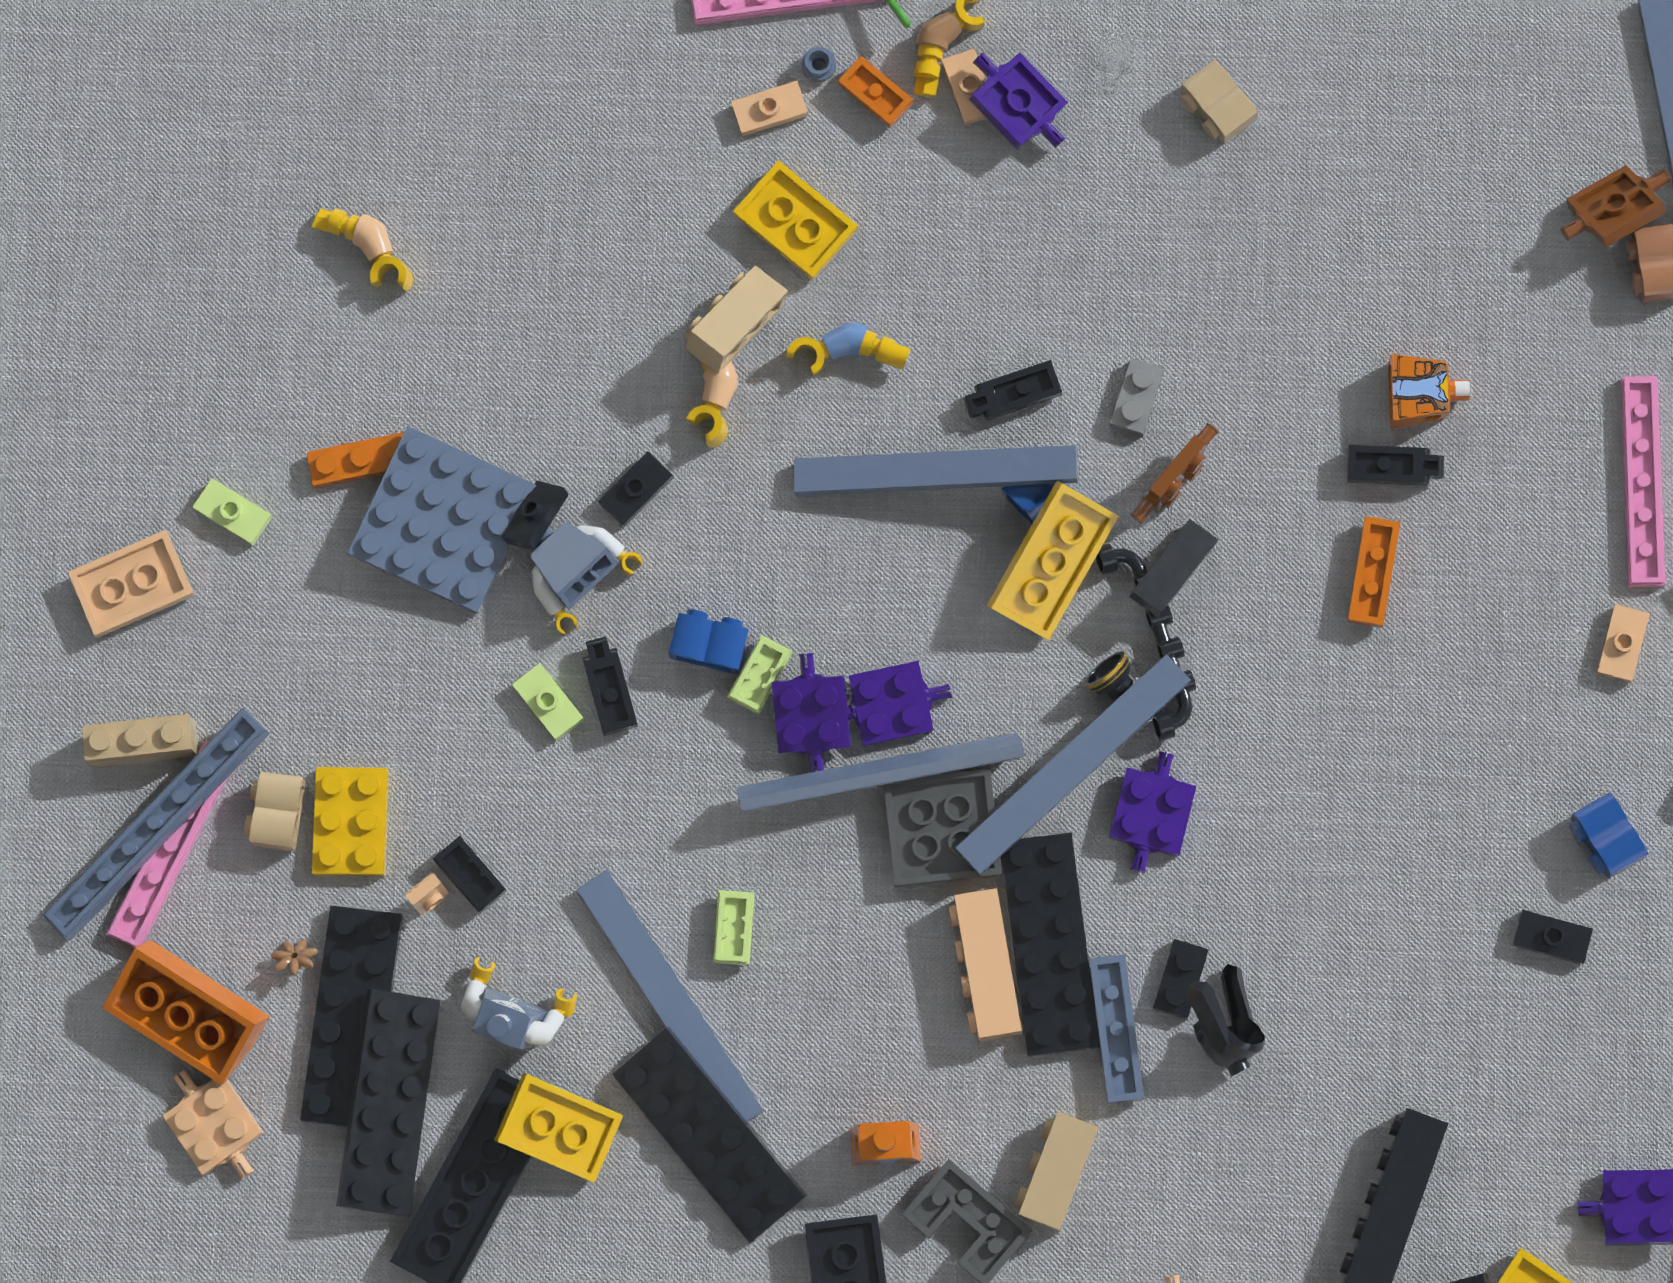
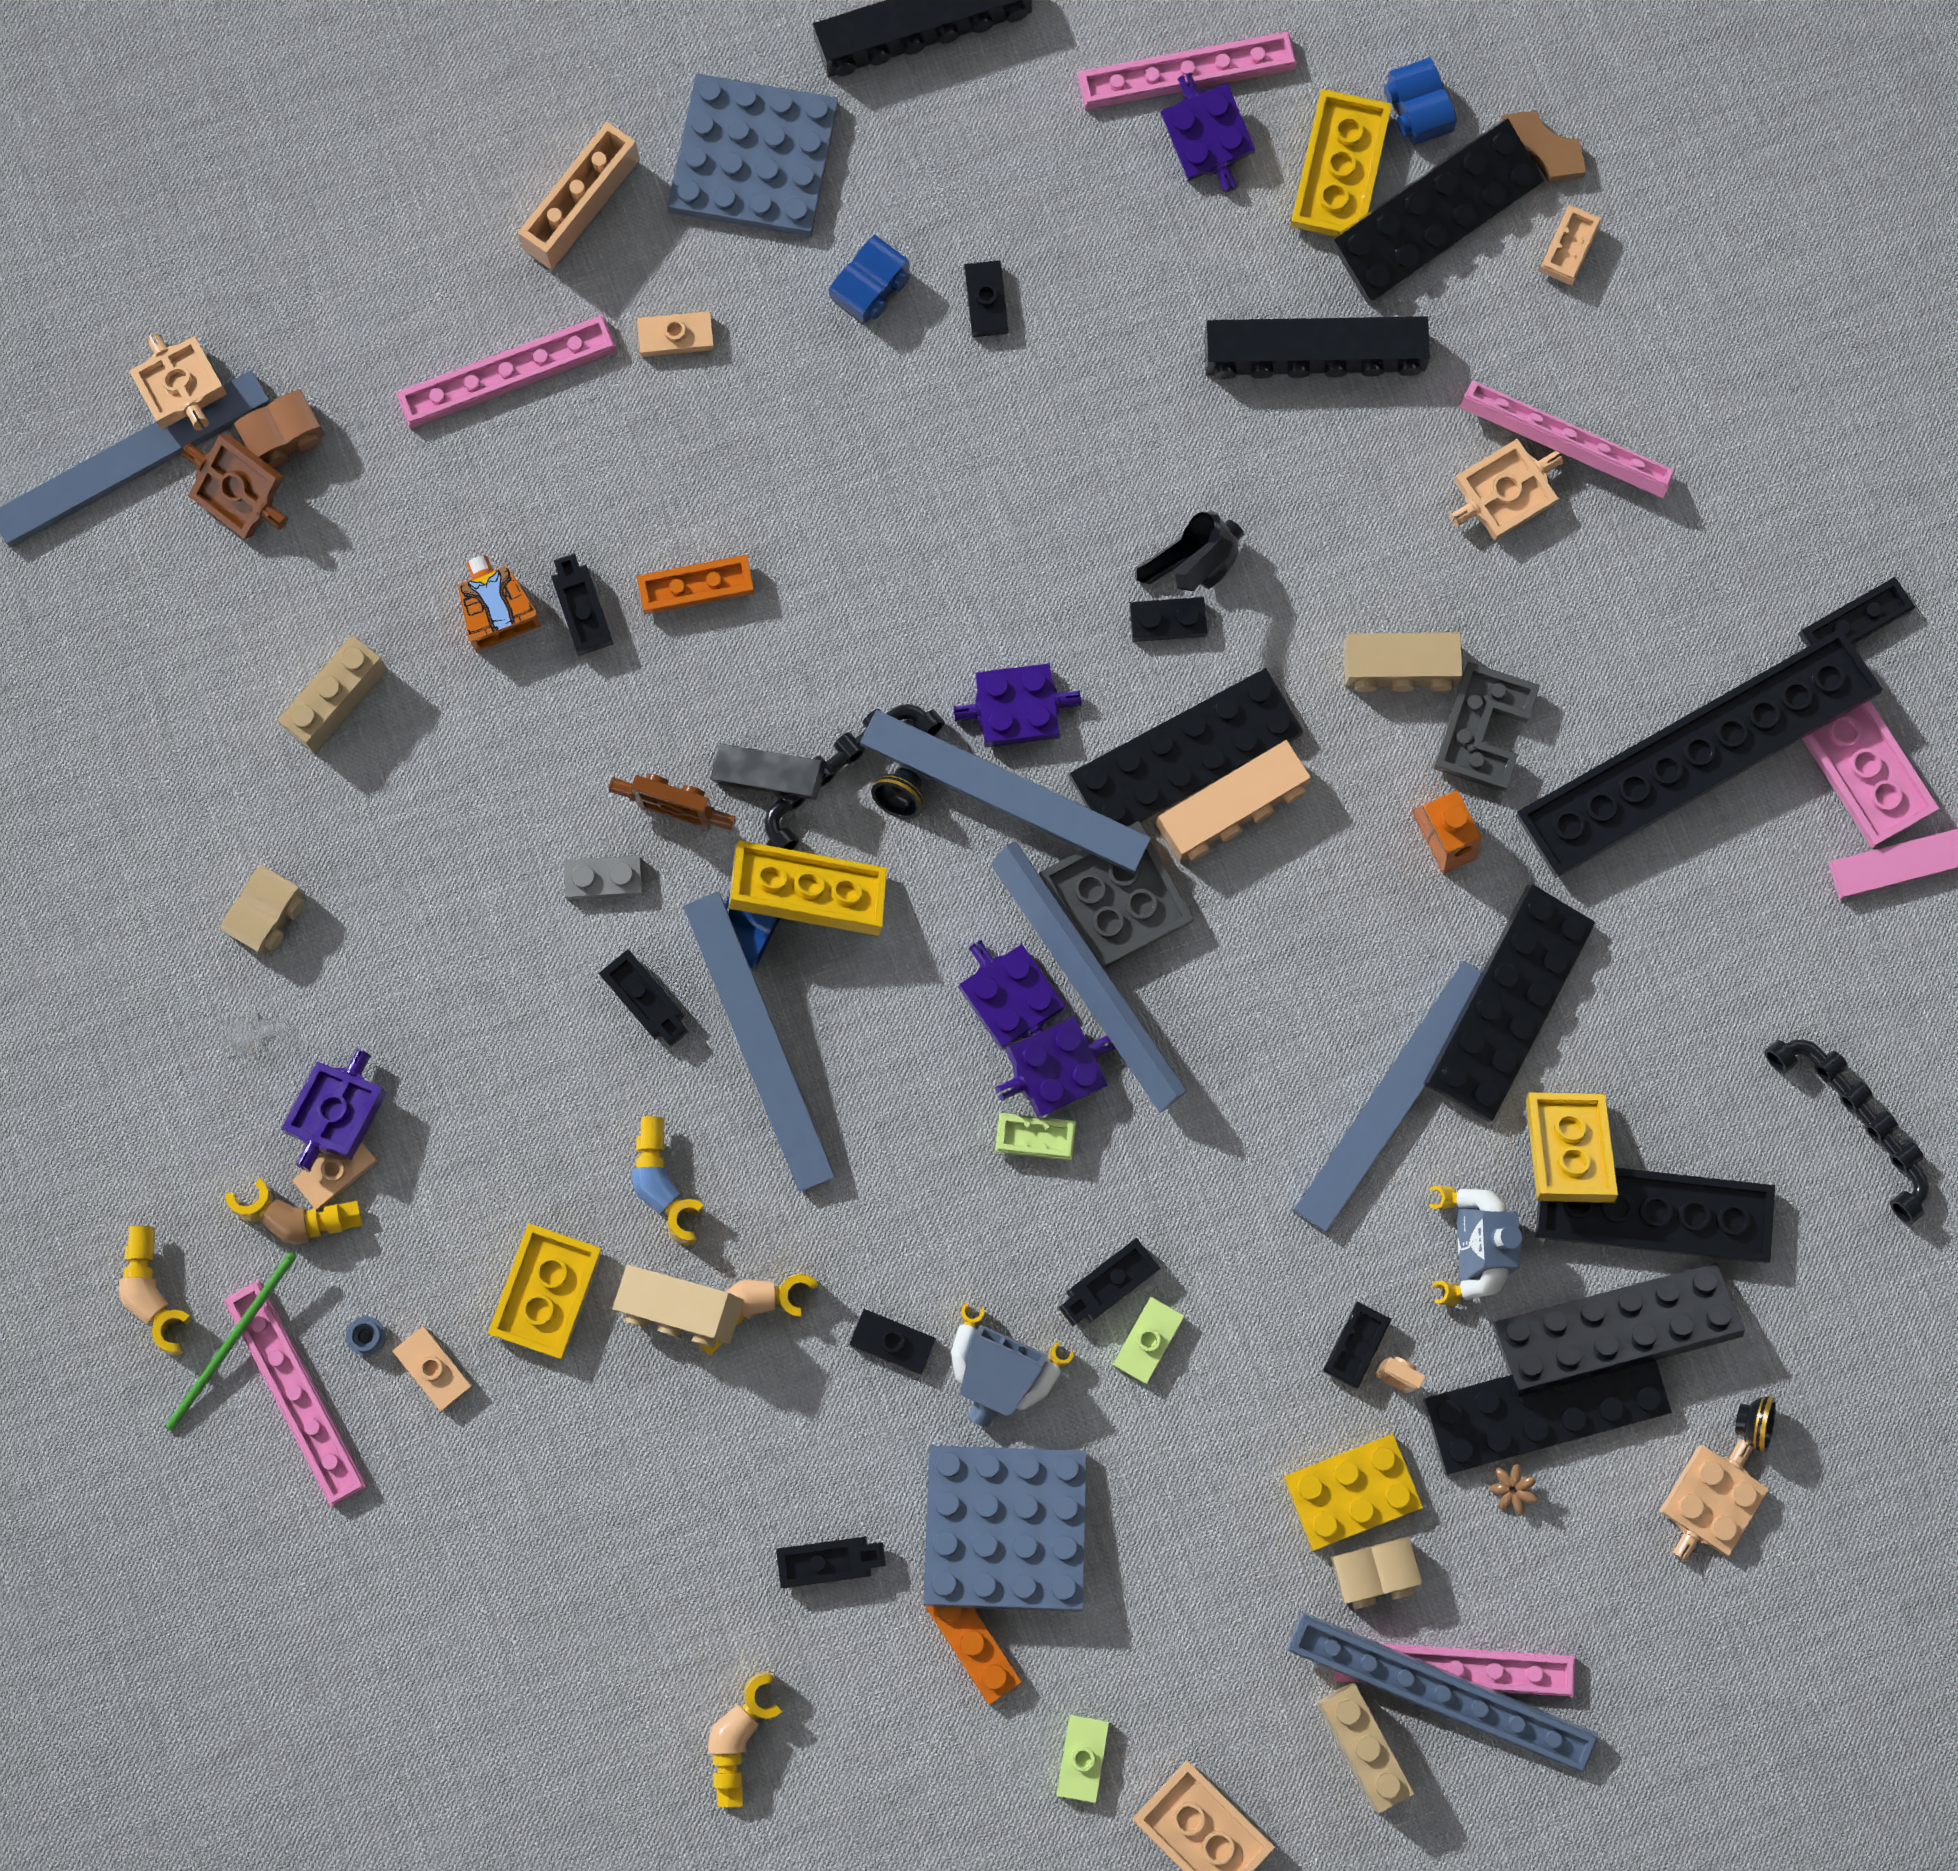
camera: 120 degrees left, 0 degrees up
(185, 1011) = (1619, 1574): orange slope -> none
(259, 1189) = (1757, 1422): none -> black piece
(476, 367) = (828, 1561): none -> black hinge
(535, 515) = (963, 1431): black plate -> none
(709, 641) = (1023, 1200): blue brick -> none
(733, 927) = (1298, 1060): yellowish green plate -> none
(875, 92) = (375, 1263): orange plate -> none
(1116, 1029) = (1242, 658): sand blue plate -> none
(1390, 224) = (333, 694): none -> tan brick

